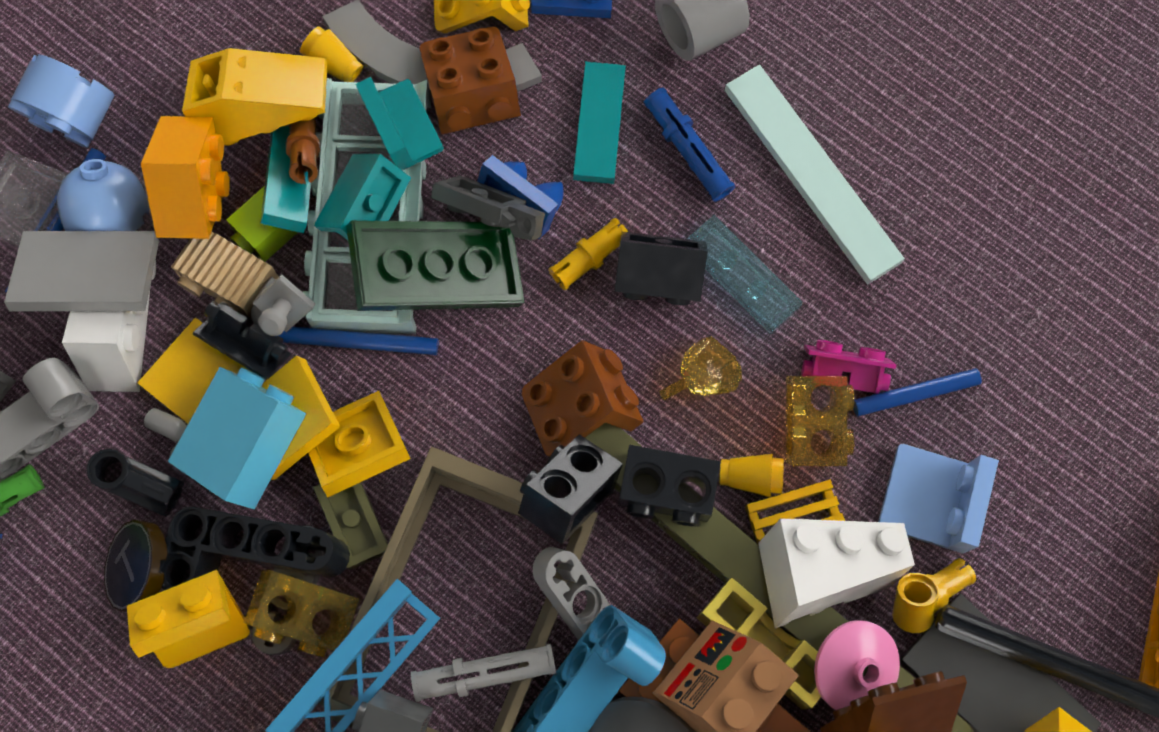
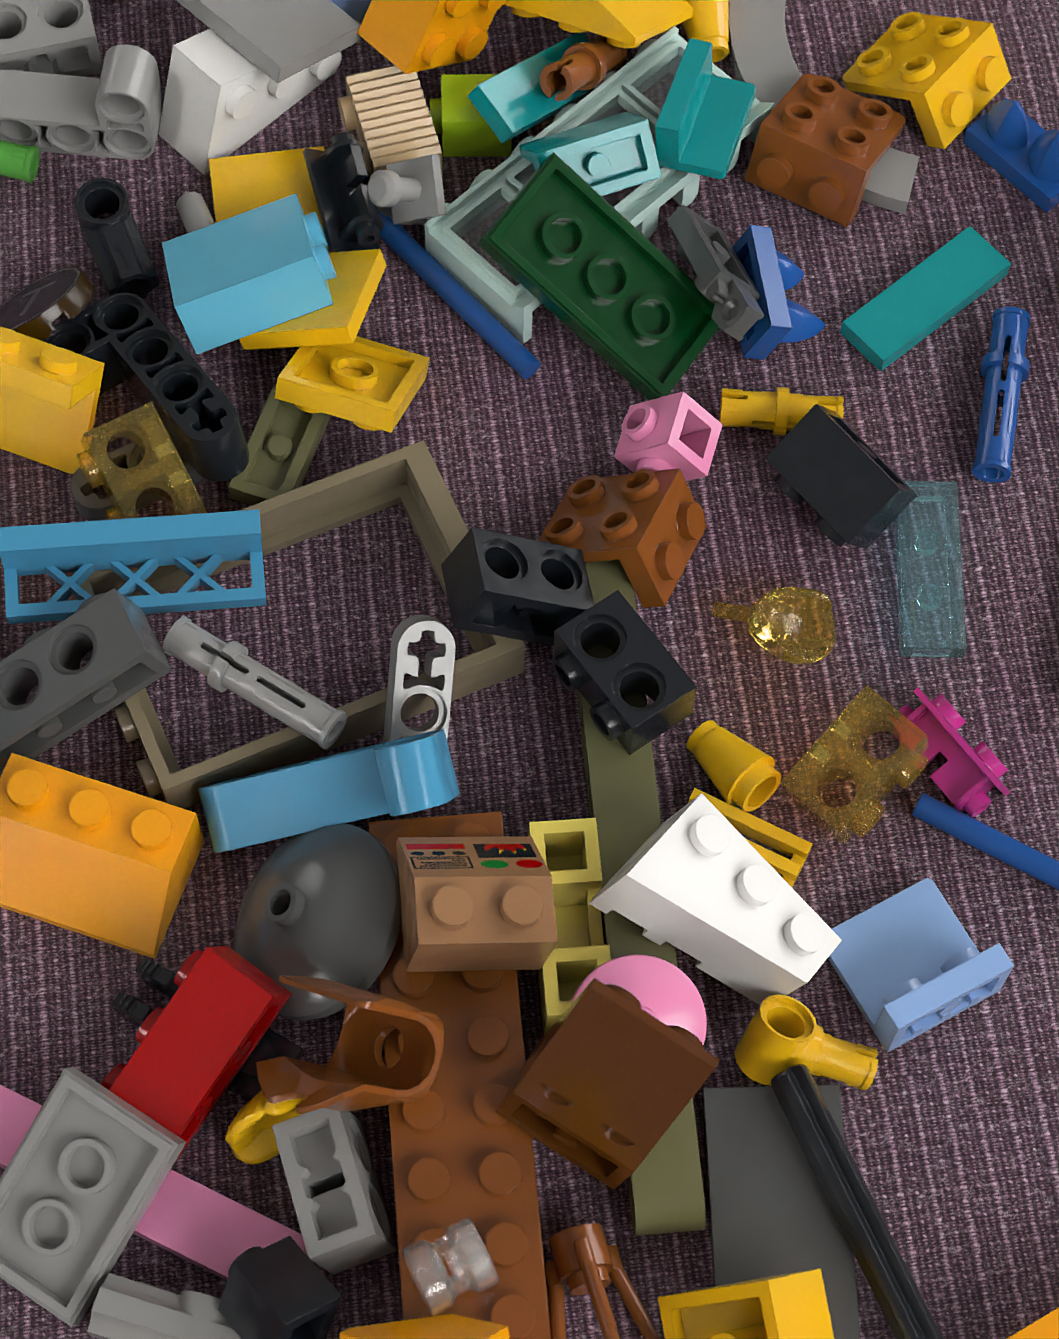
camera: 45 degrees right, 10 degrees down
(554, 325) = (669, 435): none -> bright pink brick

